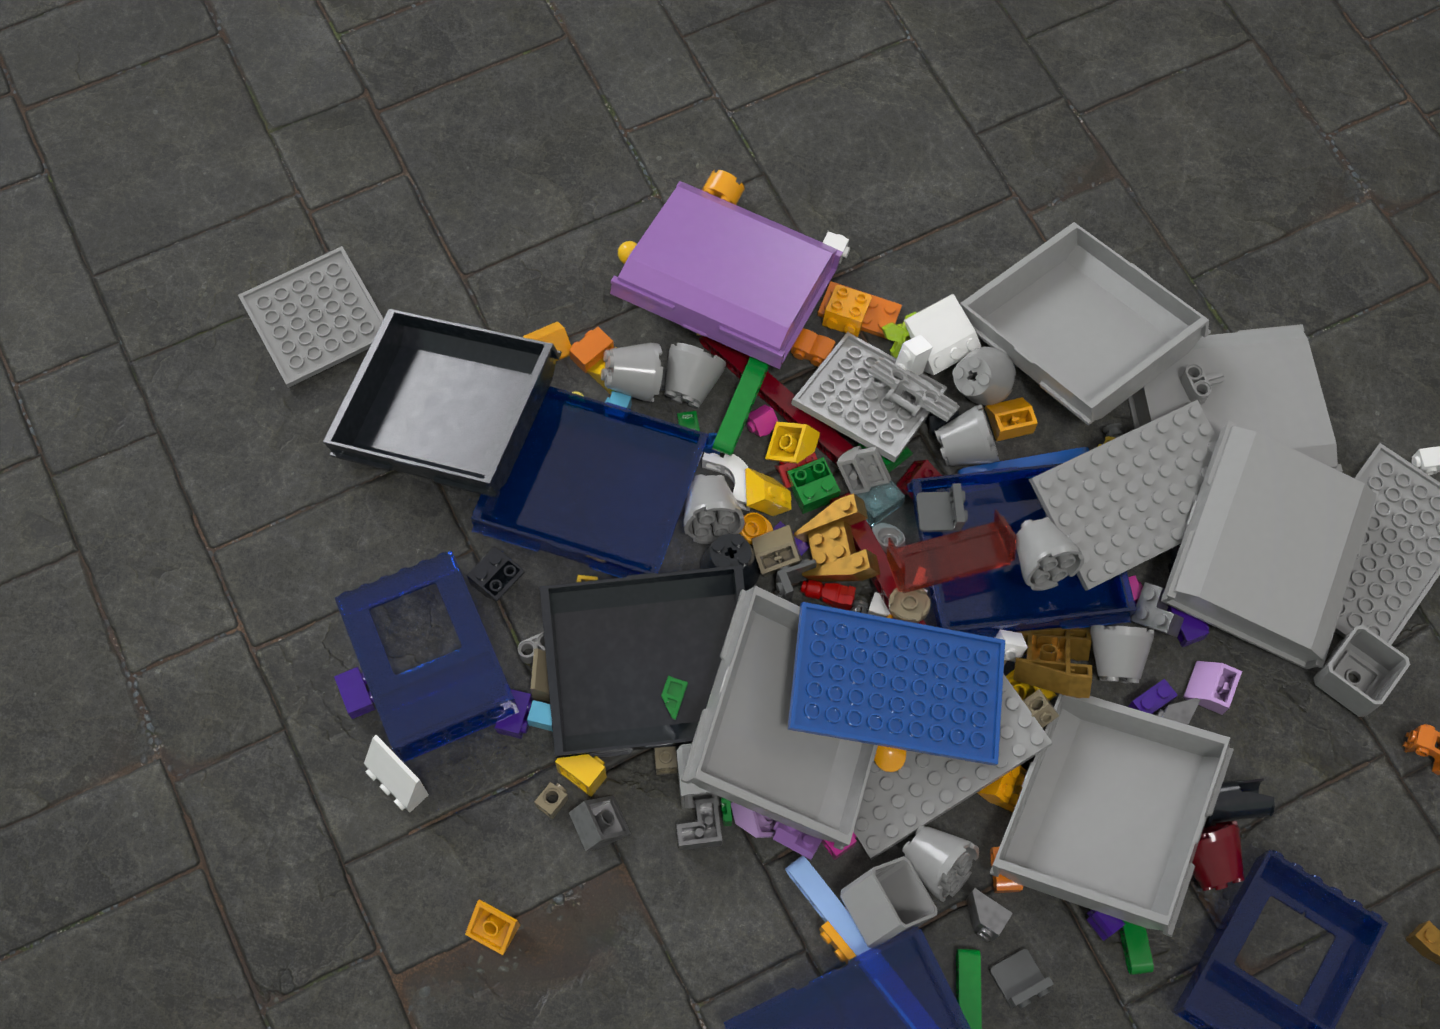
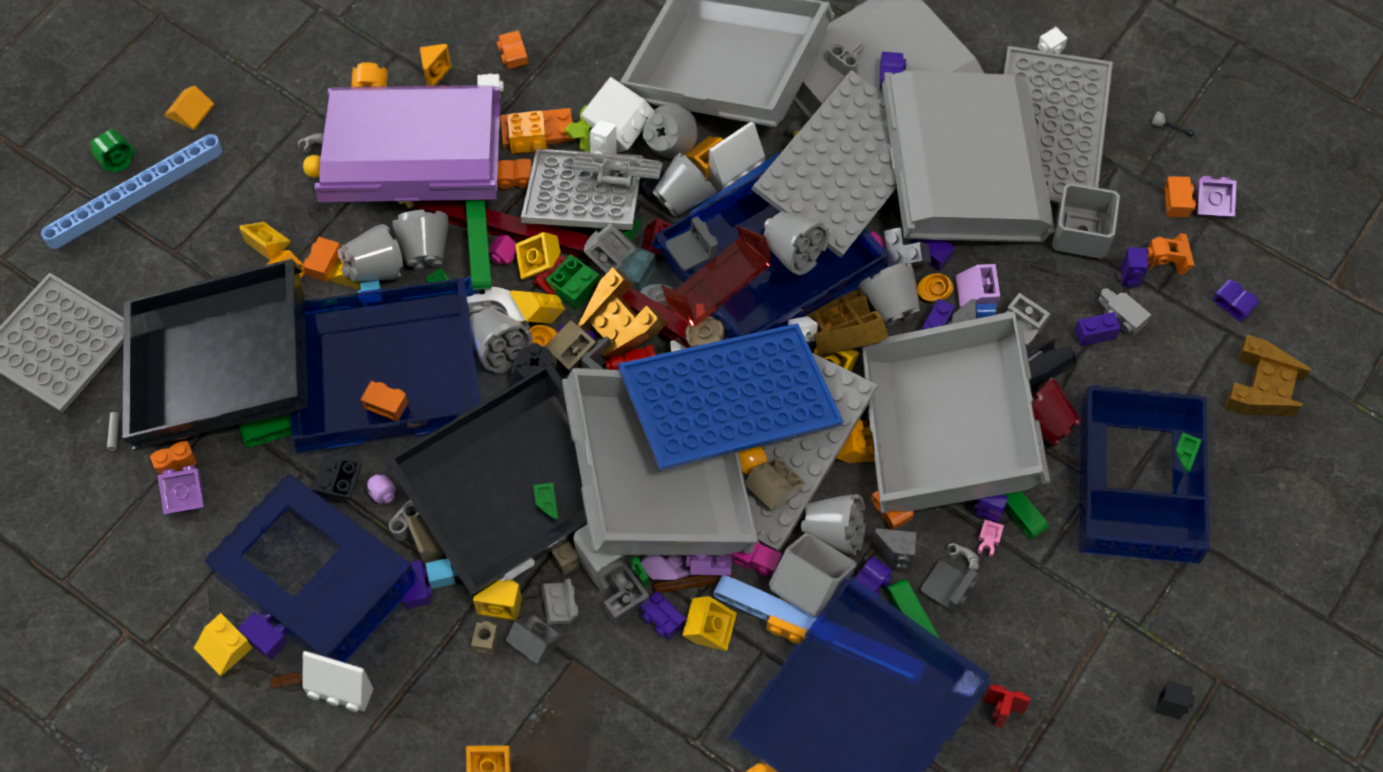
camera: 25 degrees left, 5 degrees down
(315, 683) = (222, 644): none -> yellow slope
(323, 427) = (113, 431): none -> light grey piece
(353, 515) = (181, 490): none -> medium lavender plate
(354, 745) = (286, 680): none -> reddish brown axle
(357, 482) = (175, 457): none -> orange brick
(445, 199) = (131, 191): none -> light blue beam
(453, 496) = (265, 430): none -> green beam
(454, 152) = (112, 151): none -> green brick
(529, 604) = (381, 489): none -> lavender head
(546, 141) = (190, 108): none -> light orange slope
(549, 303) = (264, 239): none -> yellow slope
(576, 520) = (384, 400): none -> orange brick
(637, 224) = (309, 141): none -> light grey piece
(637, 801) = (559, 602): none -> light grey bracket
(727, 865) = (663, 616): none -> dark purple brick
(767, 843) = (686, 582): none -> reddish brown axle
(767, 895) = (709, 623): none -> yellow slope
(793, 200) = (435, 62): none -> light orange slope
(854, 861) = (766, 561): none -> dark pink brick
(876, 219) = (513, 49): none -> orange brick
(899, 790) = (774, 483): none -> dark tan slope
(946, 933) = (874, 575): none -> dark purple brick
(1035, 434) = (735, 156): none -> white slope
(1041, 708) = (854, 363): dark tan brick -> none
(1058, 960) = (970, 556): none -> light grey piece
(1090, 949) = (990, 536): none -> bright pink plate
(1168, 664) = (935, 287): none -> light orange hat
(1206, 715) = (985, 310): none -> blue brick
(1242, 413) = (892, 63): none -> dark purple brick
(1246, 741) = (1031, 316): none -> light grey brick
(1314, 790) = (1097, 329): none -> dark purple brick
(1337, 970) = (1187, 450): none -> green tile
(1352, 784) = (1129, 313): none -> light grey hinge
(1387, 744) = (1134, 267): none -> dark purple brick

